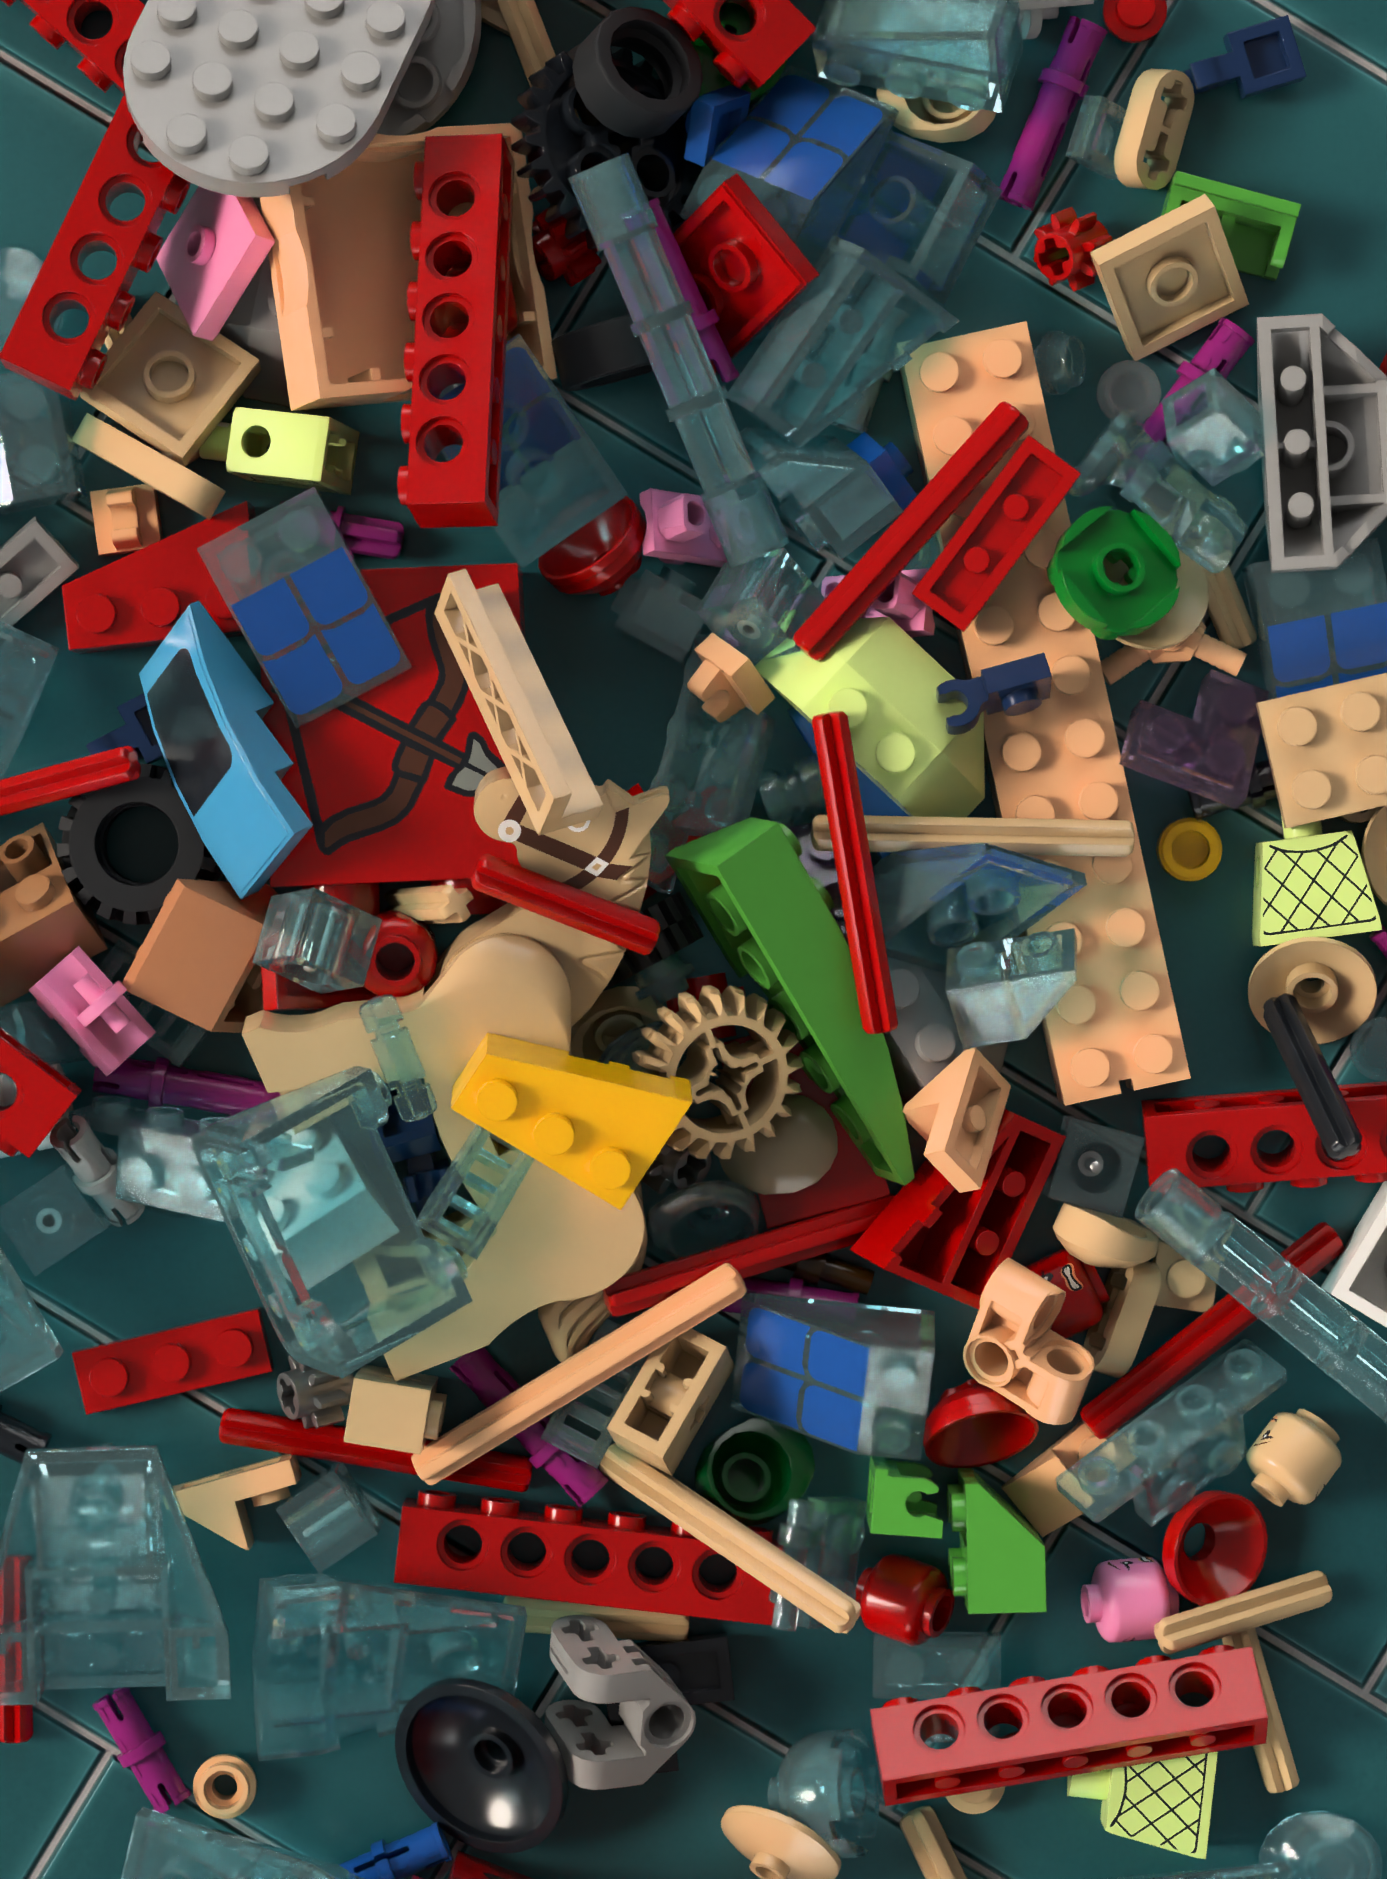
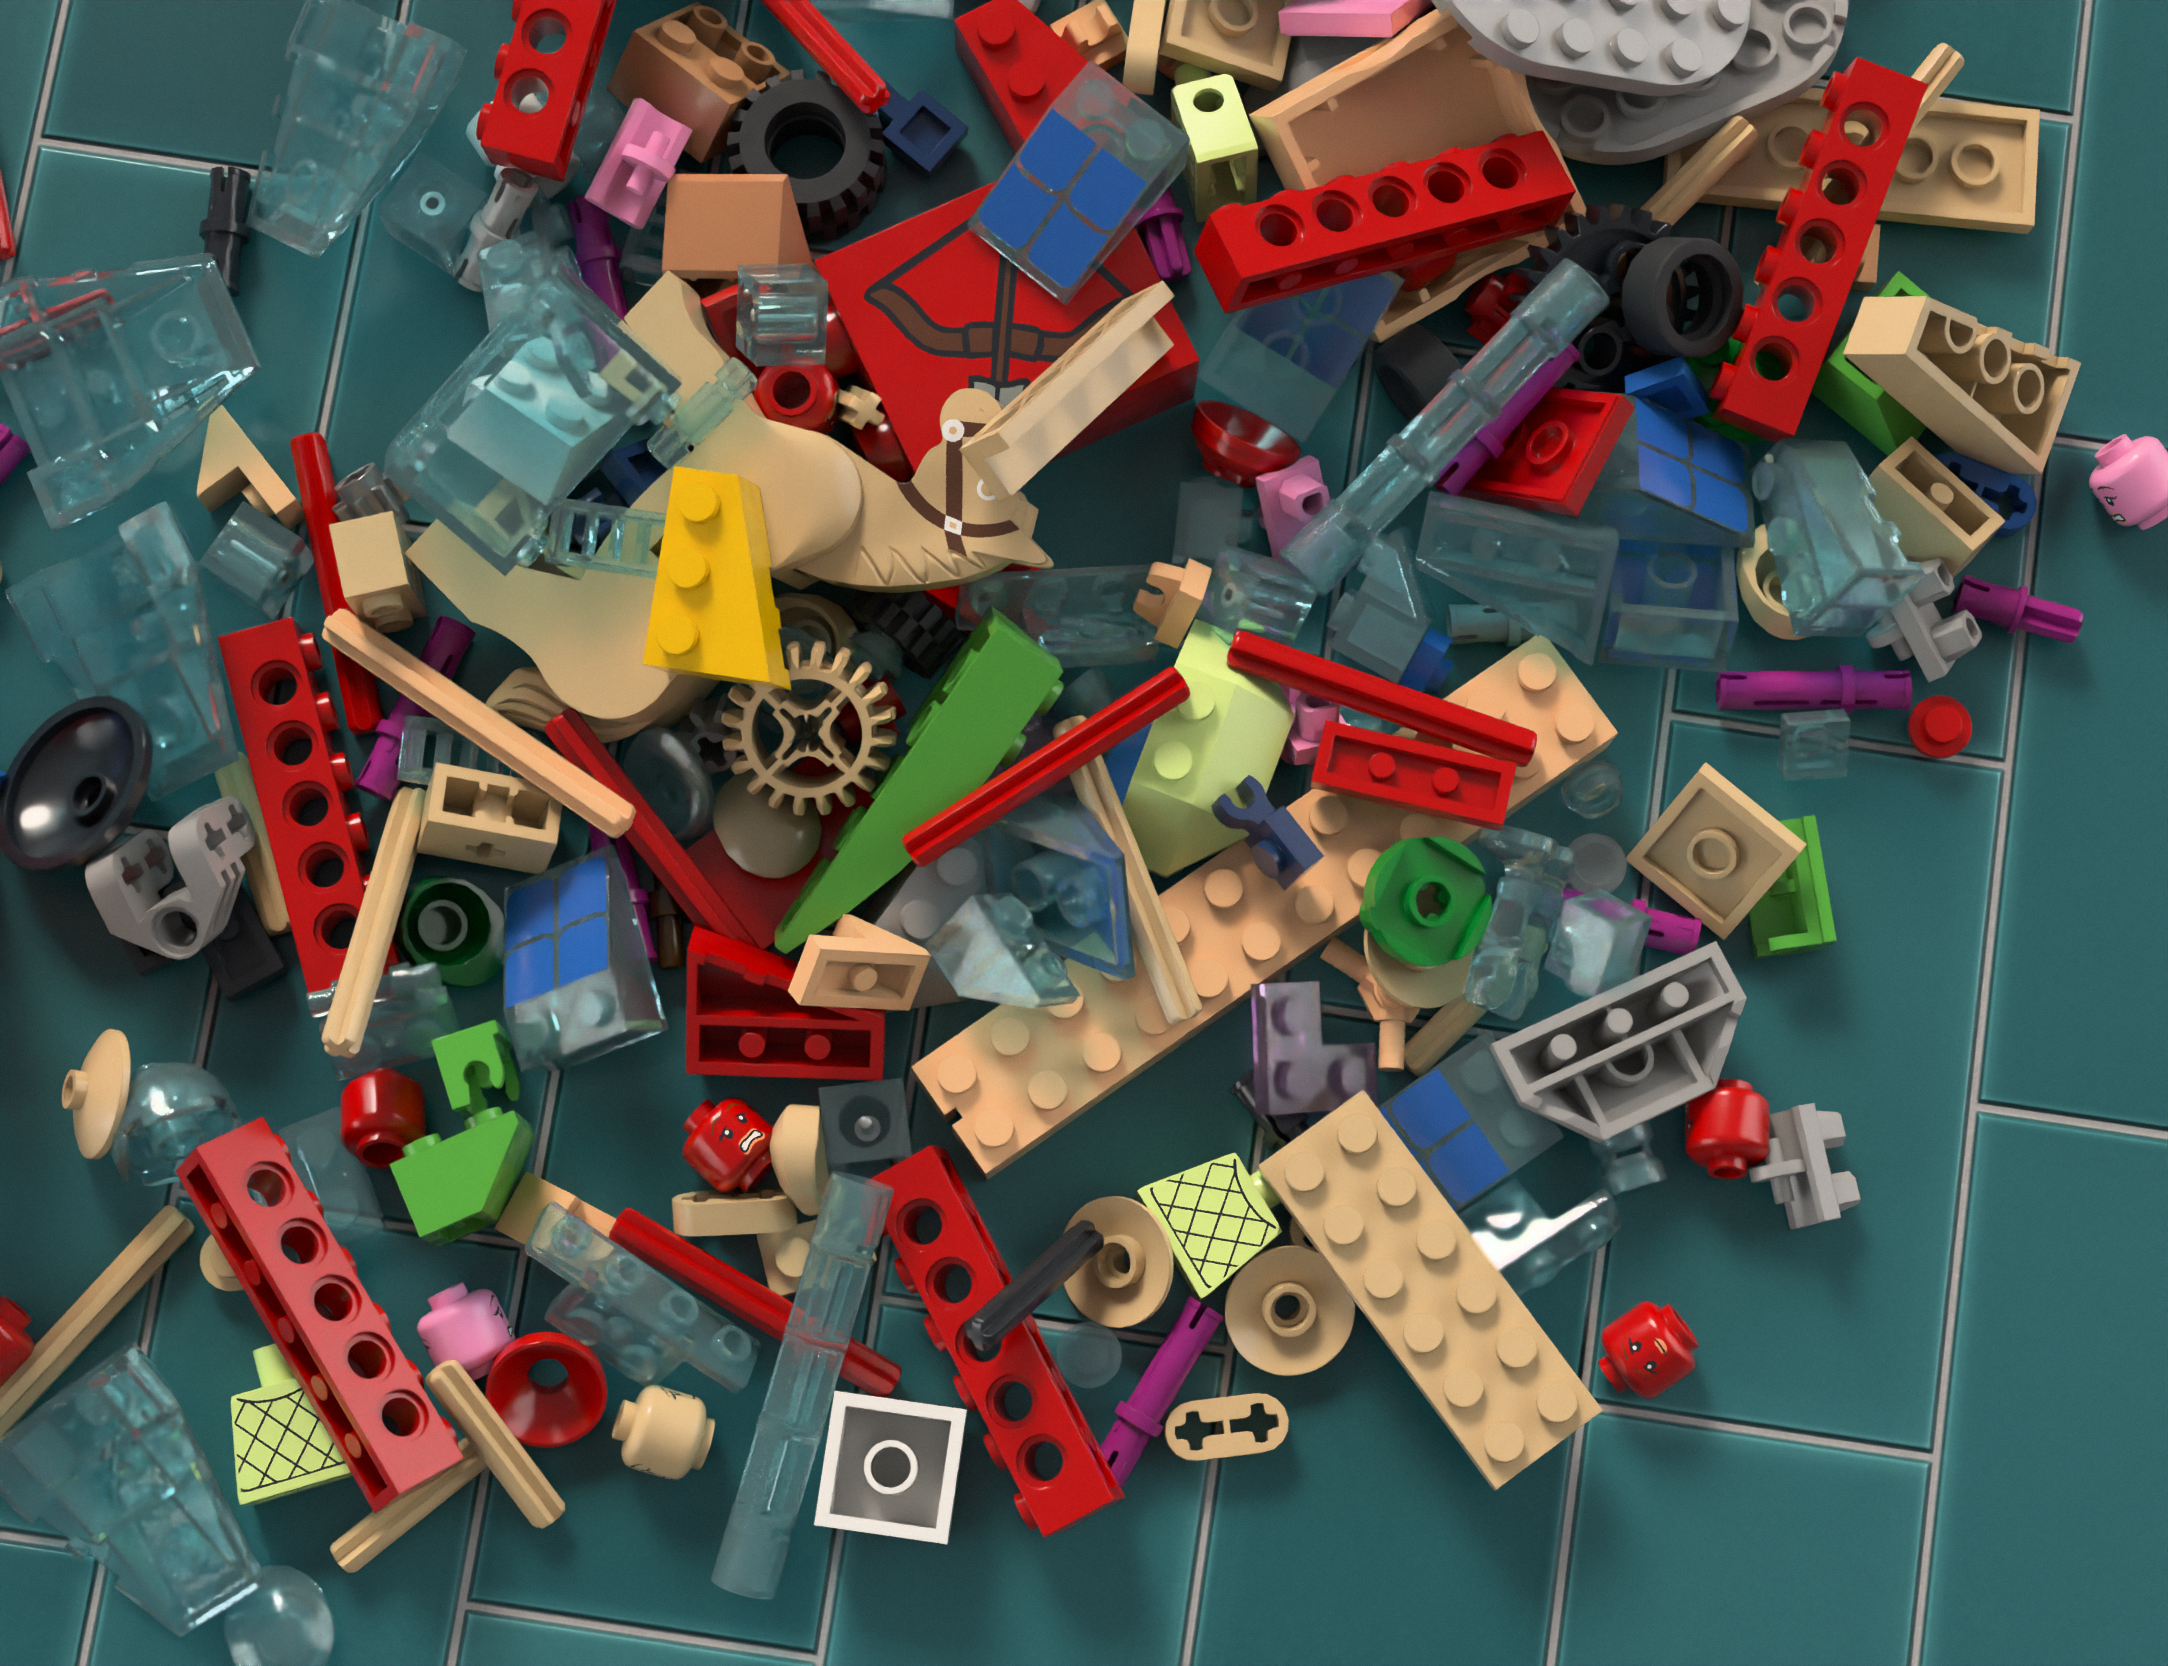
camera: 60 degrees right, 10 degrees down
(173, 1361) = (344, 368): red plate -> none
(220, 751) = (918, 173): dark azure slope -> none
(565, 904) = (906, 507): red axle -> none
(976, 1427) = (575, 1117): red piece -> none
(1018, 1351) = (661, 1115): light nougat piece -> none
(1066, 247) = (1697, 742): red gear -> none
(1154, 129) = (1842, 785): tan beam -> none
(1189, 849) = (1199, 1096): yellow tile -> none
(1256, 58) = (1948, 853): dark blue plate -> none

